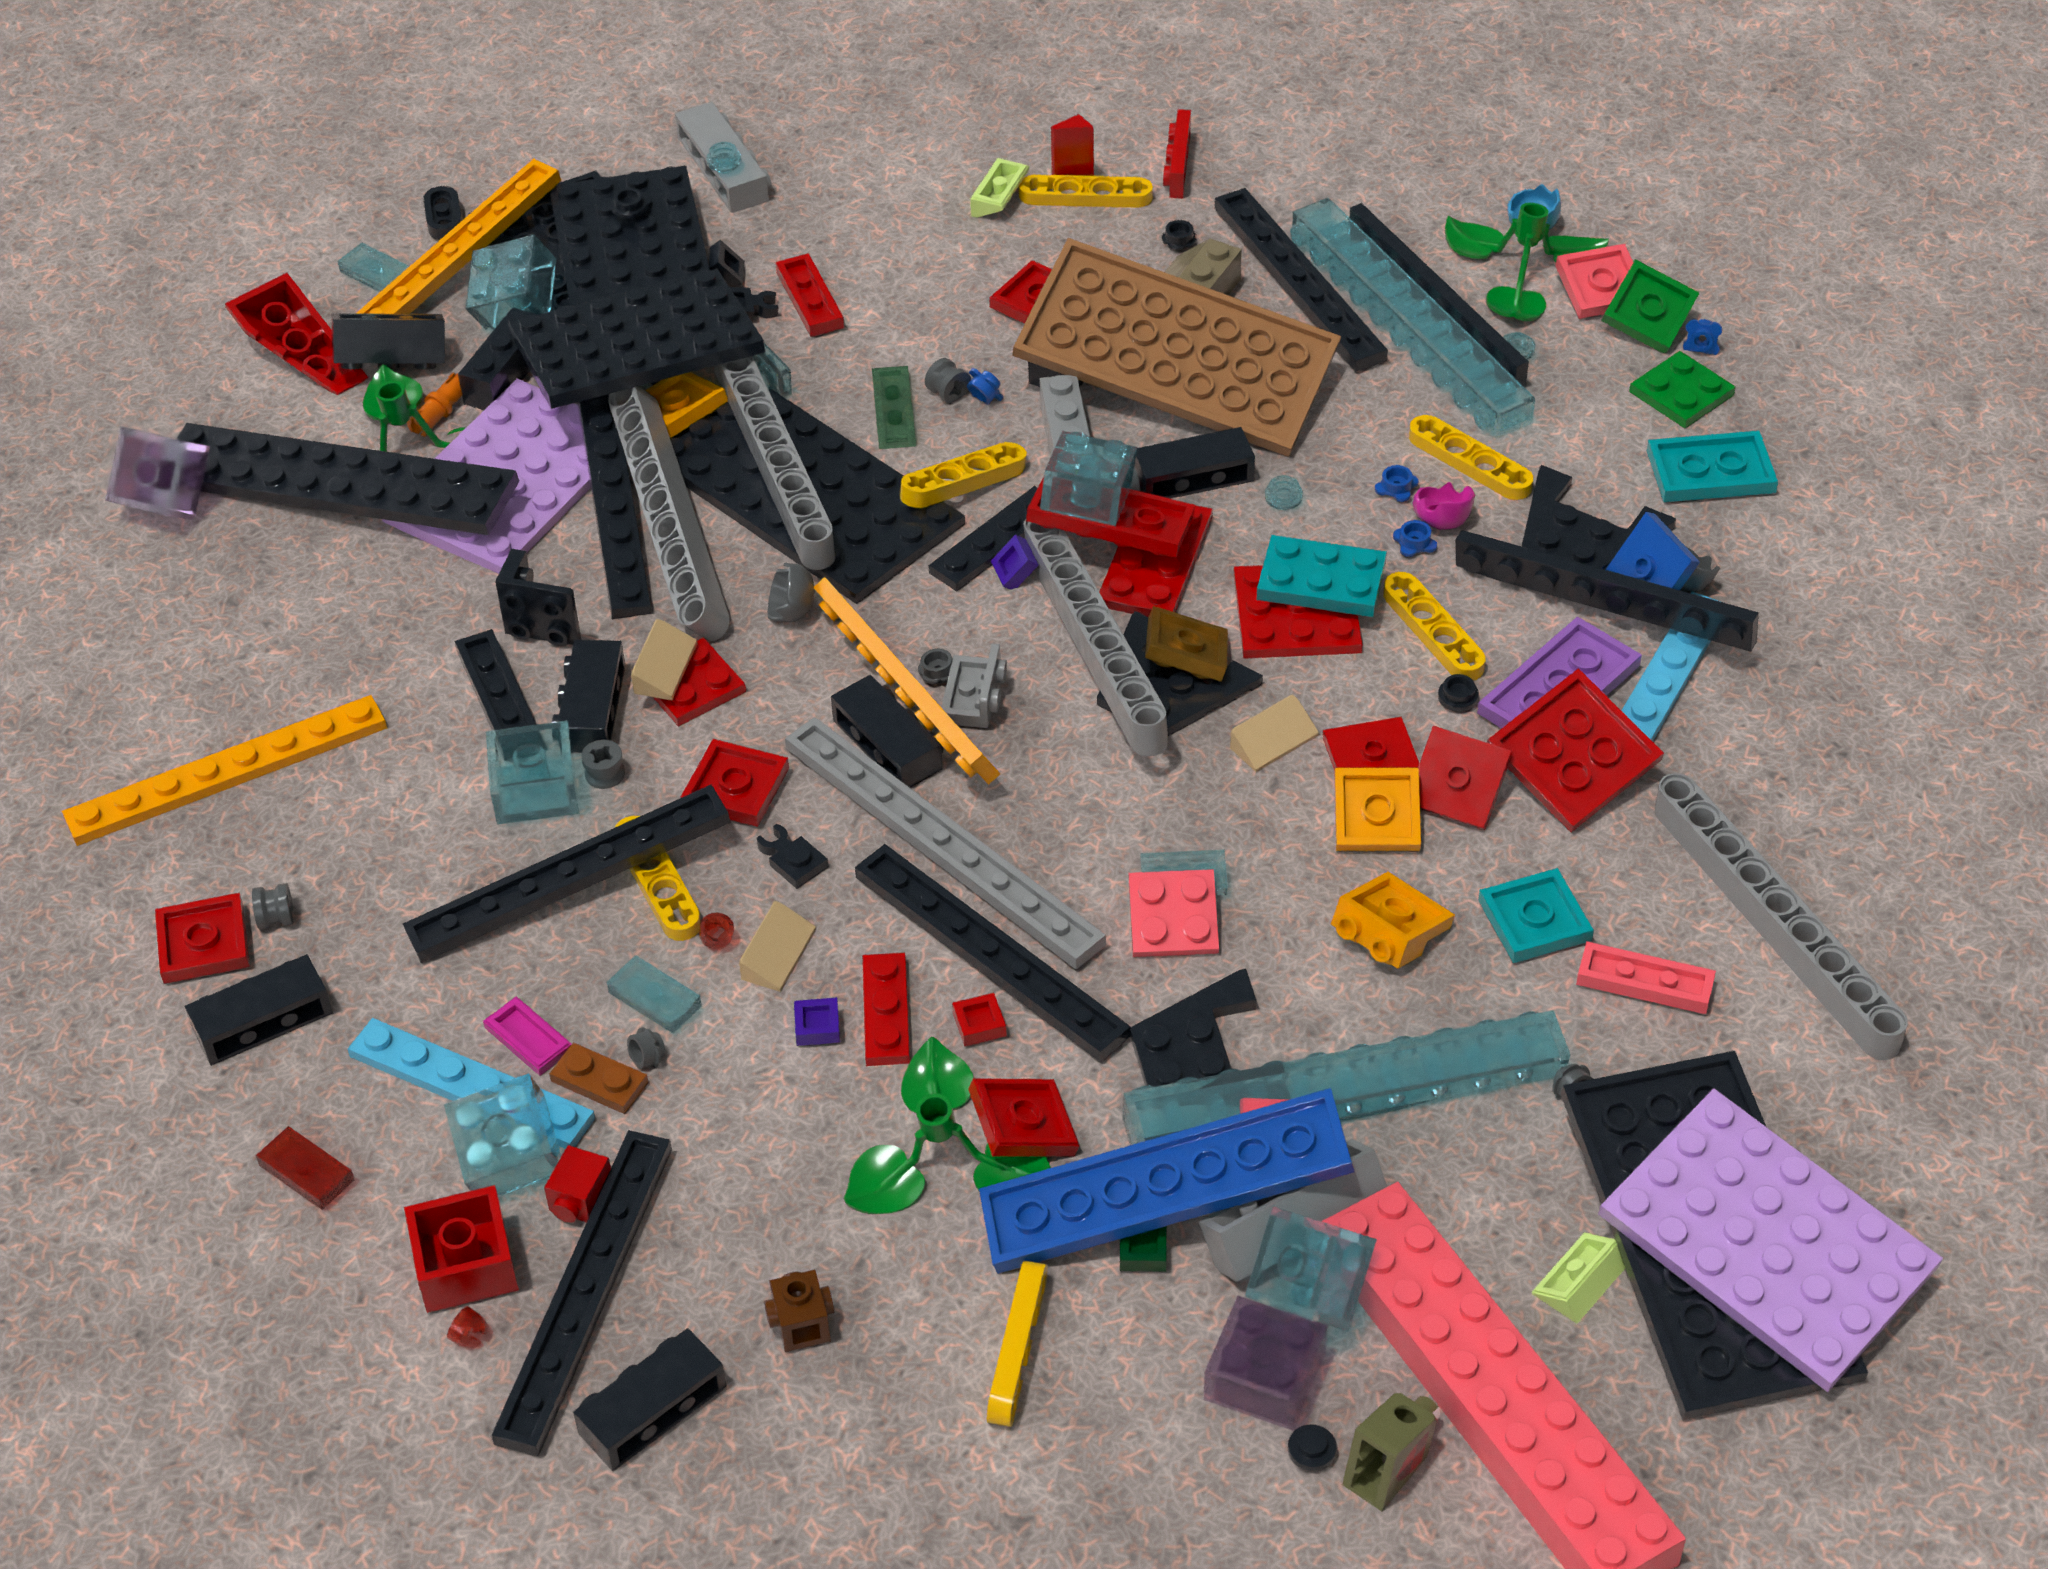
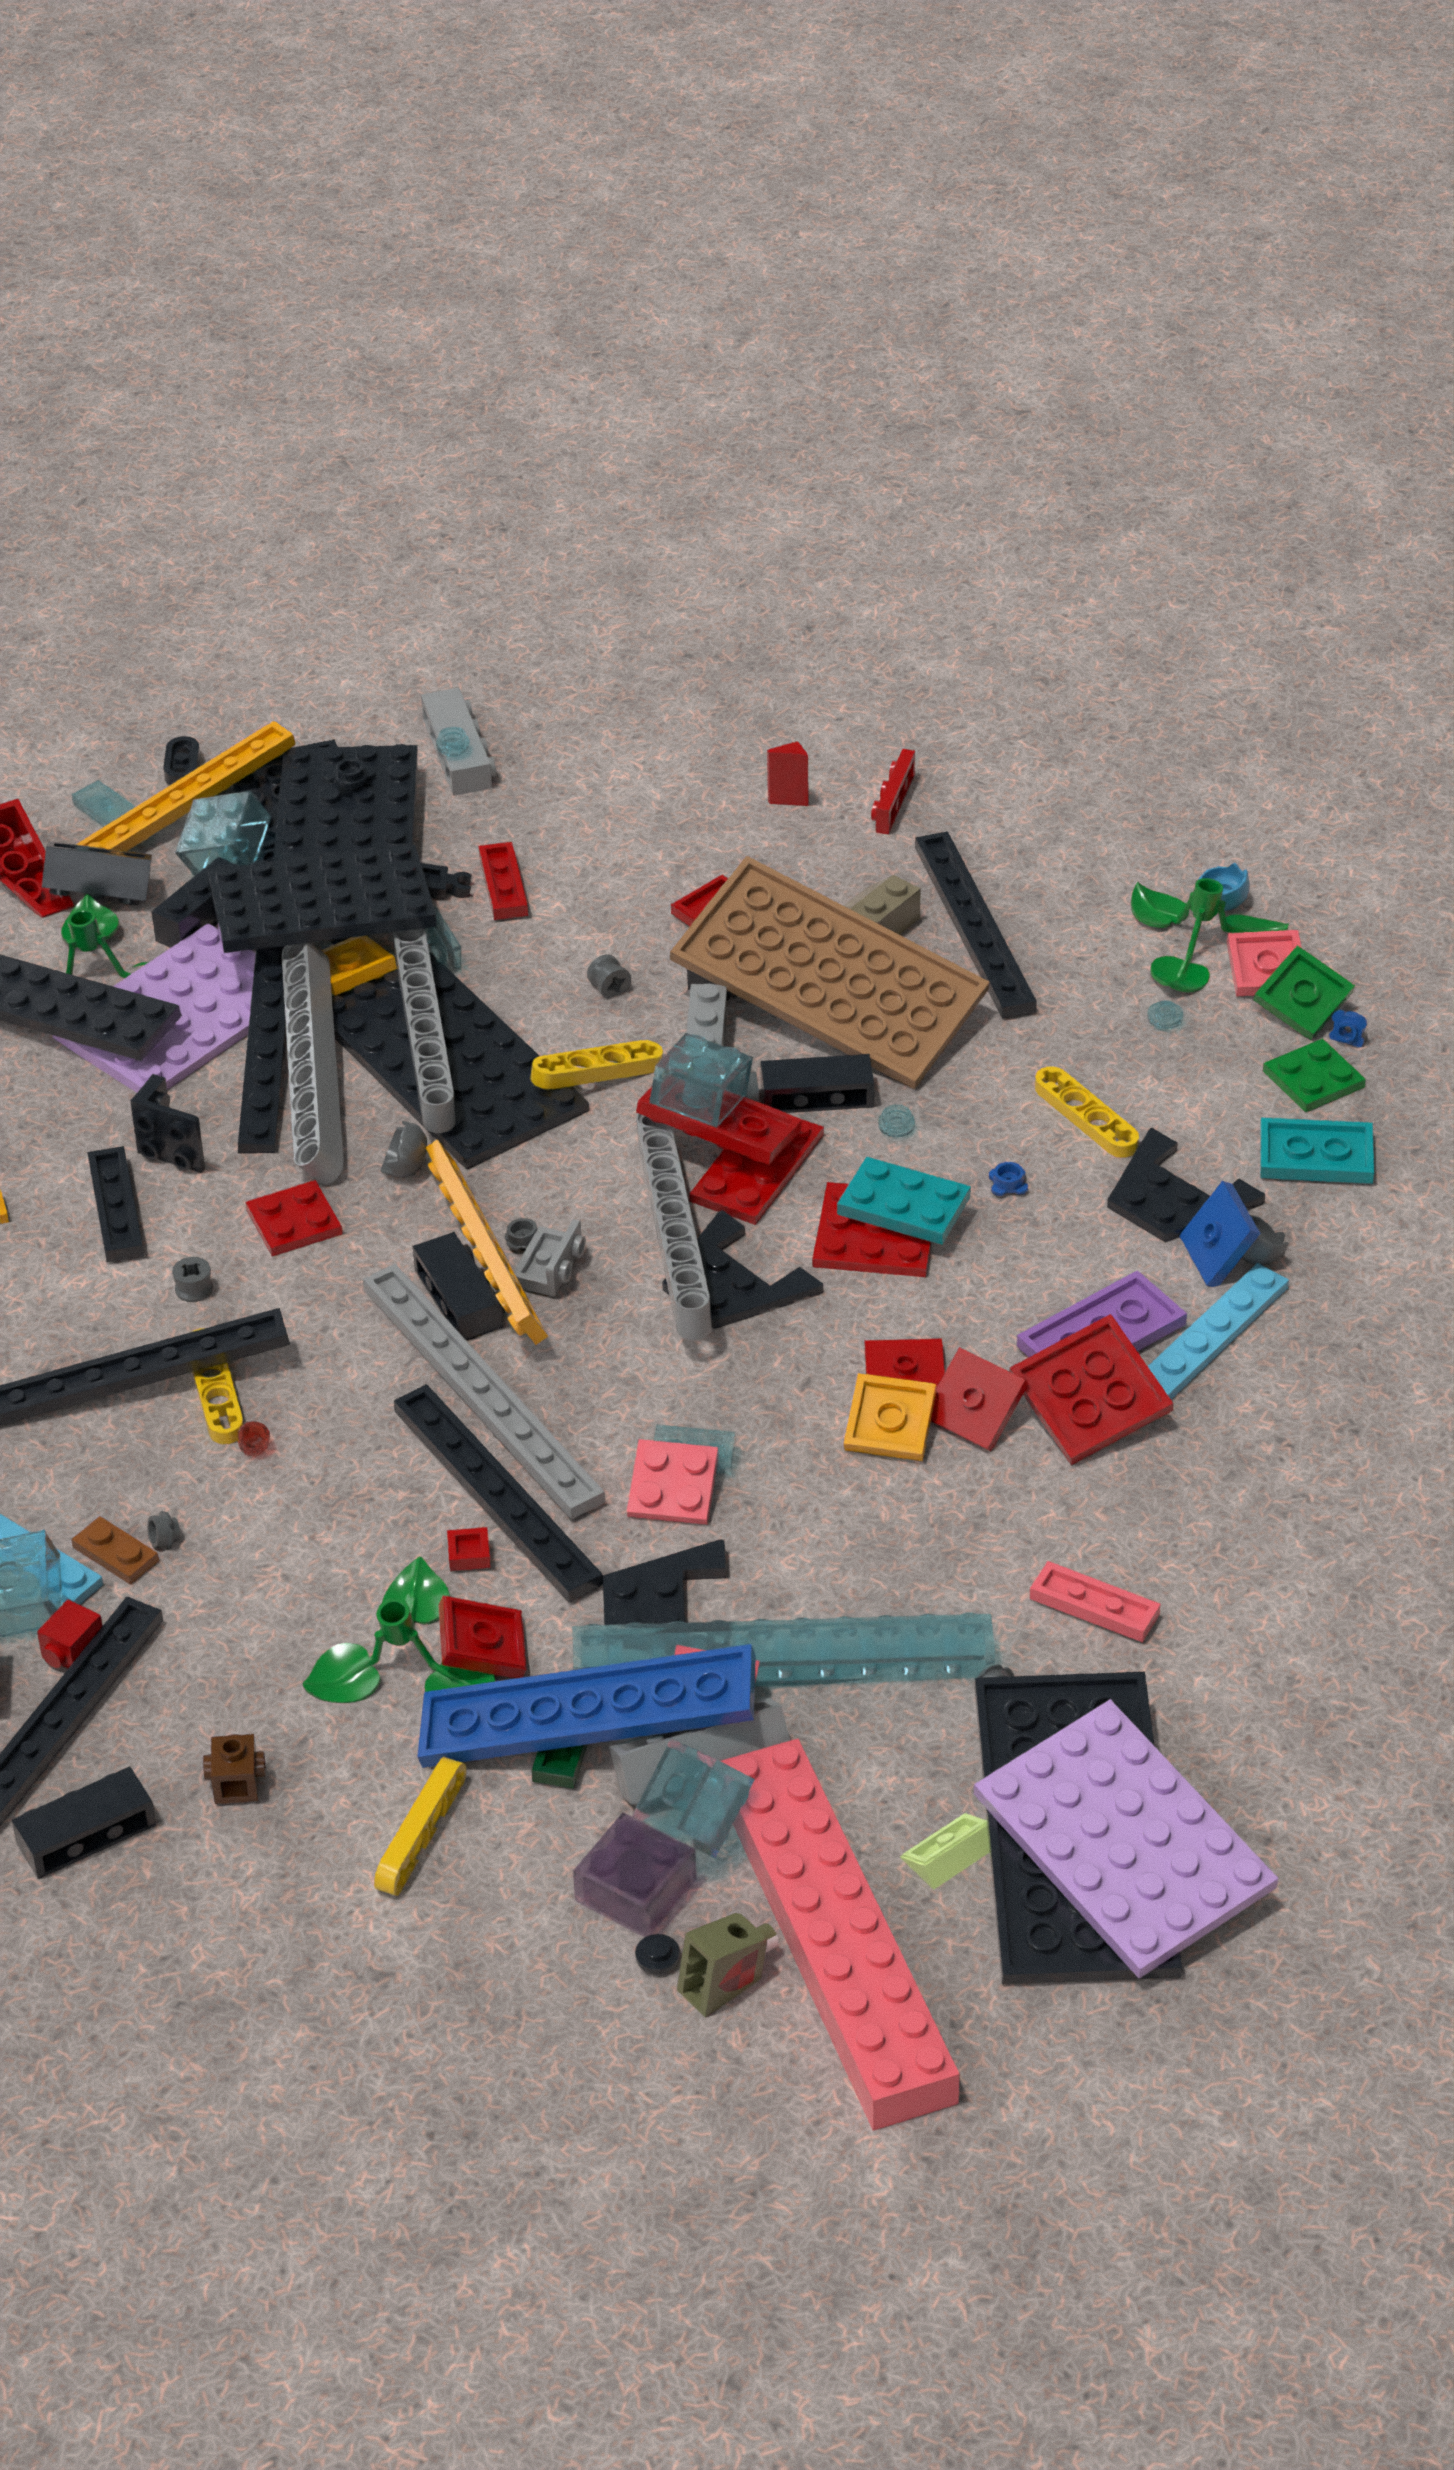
camera: 10 degrees right, 5 degrees down
(437, 404) = (129, 938): orange pin -> none
(527, 1035) = (61, 1504): dark pink tile -> none
(532, 772) = (124, 1276): clear light blue brick -> none
(591, 690) = (197, 1215): black brick -> none
(654, 994) = (183, 1485): clear light blue plate -> none
(662, 661) = (268, 1194): tan slope -> none
(727, 262) = (432, 842): black plate -> none
(741, 777) = (313, 1310): red plate -> none
(775, 947) = (303, 1460): tan slope -> none
(793, 860) = (342, 1387): black plate -> none
(816, 1021) = (321, 1529): dark purple plate -> none
(885, 1009) = (388, 1528): red plate -> none
(893, 407) = (552, 995): clear green tile -> none
(976, 551) = (593, 1135): black plate -> none
(984, 386) = (642, 986): blue plate -> none
(997, 187) = (709, 801): yellowish green slope -> none
(1014, 562) = (621, 1151): dark purple plate -> none
(1086, 191) = (795, 816): yellow beam -> none
(1179, 235) = (871, 868): black plate -> none
(1186, 644) = (757, 1245): pearl gold plate -> none
(1272, 733) = (816, 1336): tan slope -> none
(1390, 919) = (871, 1515): light orange plate -> none
(1397, 482) = (1007, 1126): blue plate -> none
(1413, 319) = (1070, 975): clear light blue brick -> none
(1439, 624) = (1004, 1261): yellow beam -> none
(1442, 293) = (1103, 961): black plate -> none
(1444, 506) = (1042, 1153): dark pink hair -> none
(1458, 693) = (1003, 1325): black plate -> none
(1535, 915) = (1009, 1532): teal plate -> none
(1607, 590) = (1171, 1250): black plate -> none
(1781, 917) = (1239, 1565): light grey beam -> none

